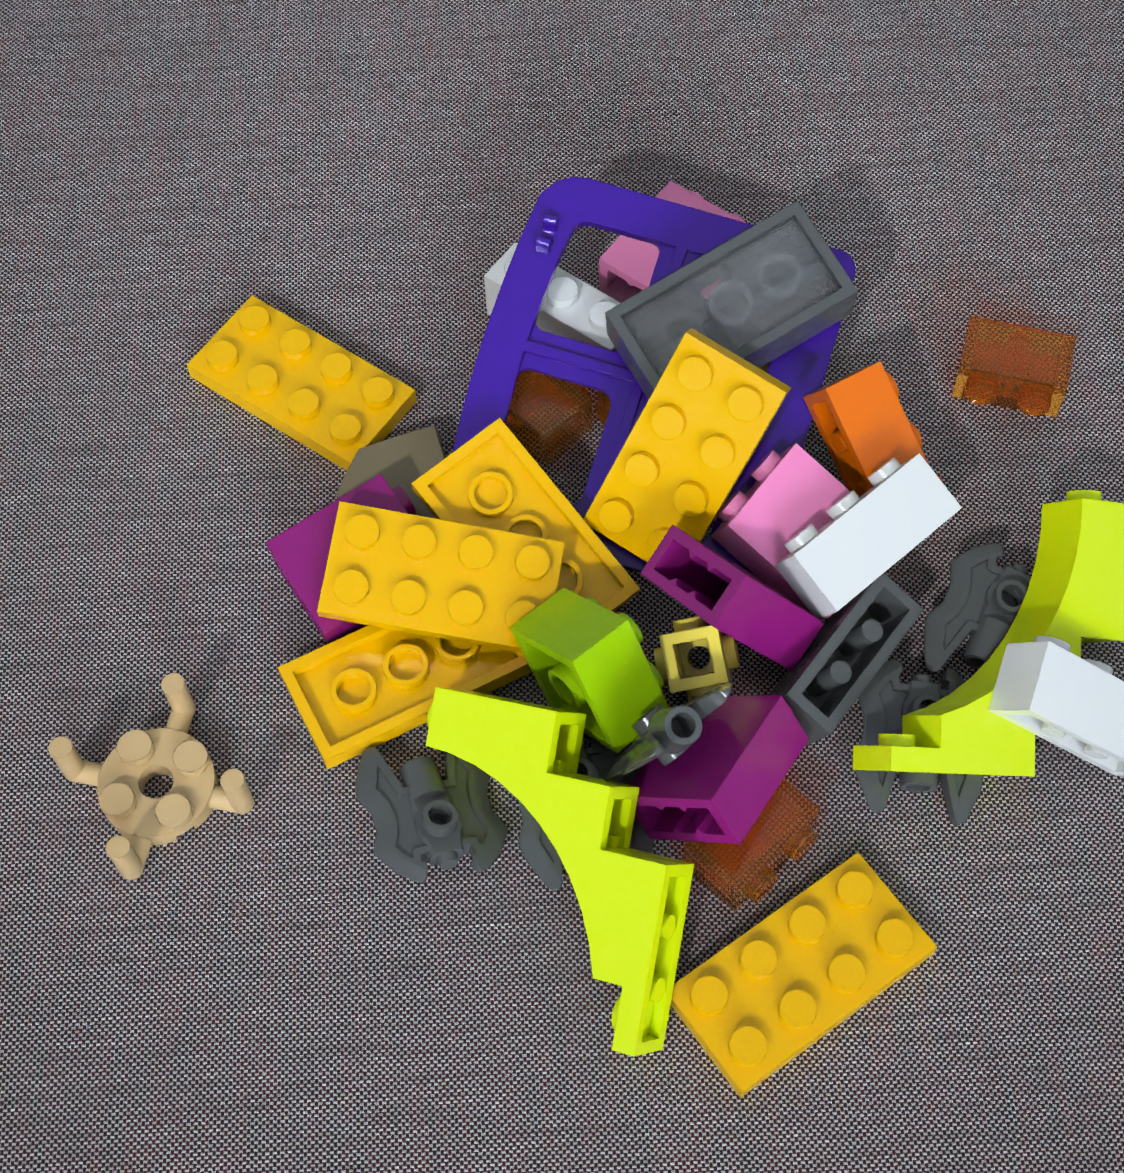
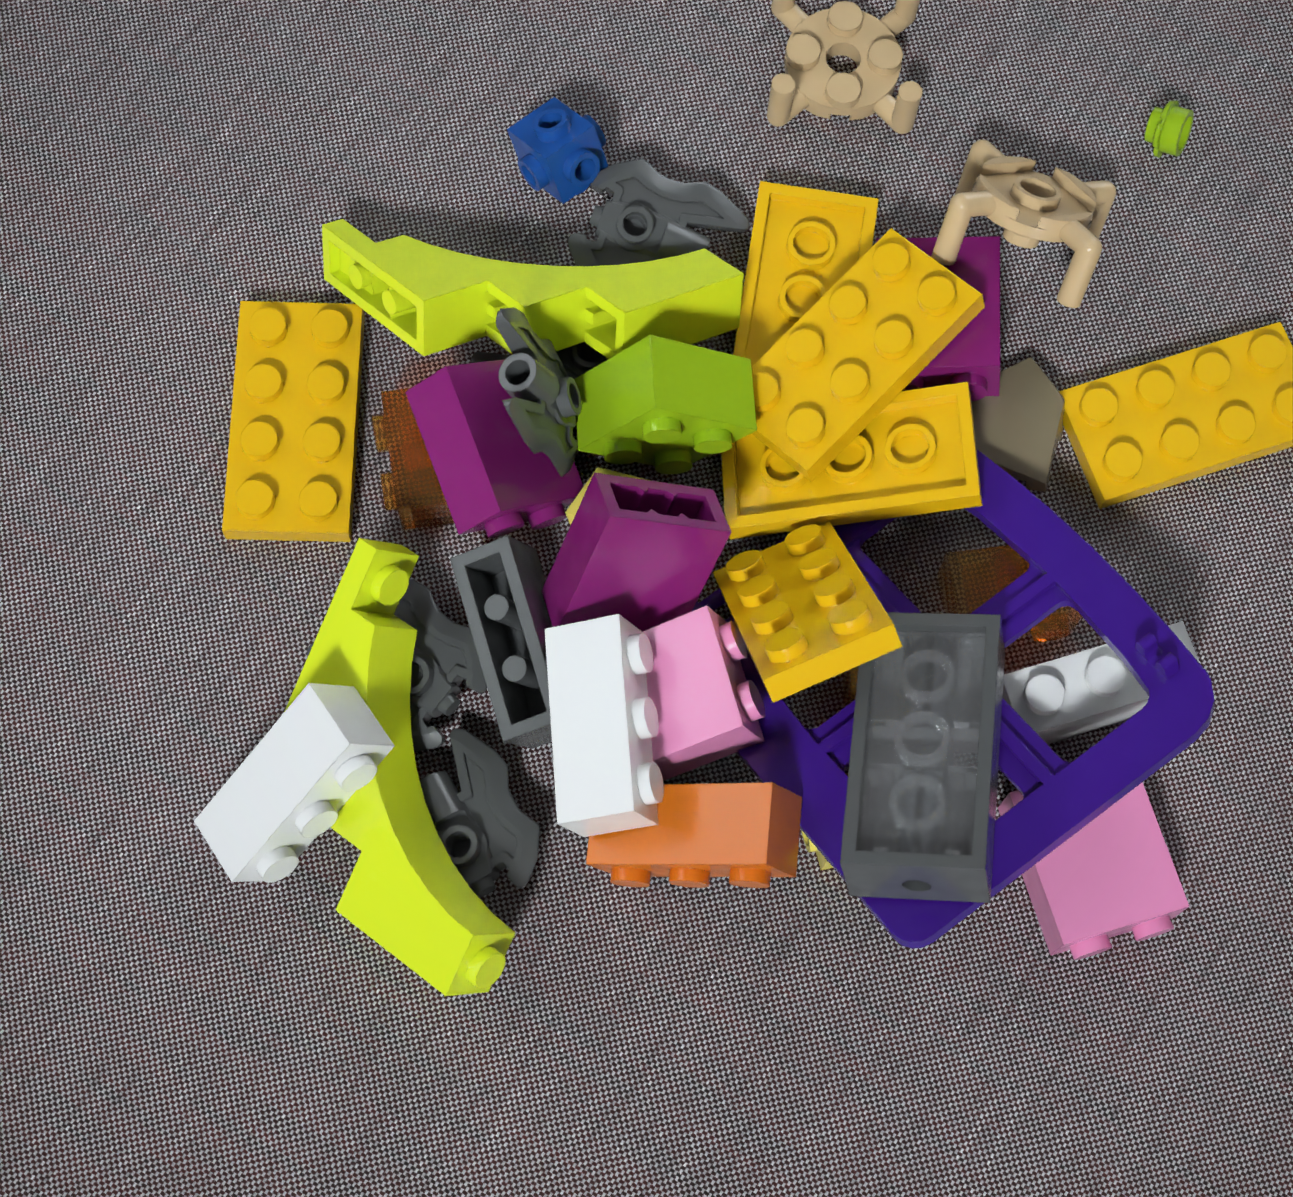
camera: 120 degrees right, 10 degrees up
(63, 519) = (1169, 129): none -> lime plate
(243, 538) = (1030, 211): none -> tan plate
(397, 939) = (558, 149): none -> blue brick
(1014, 366) = (706, 1087): clear orange brick -> none

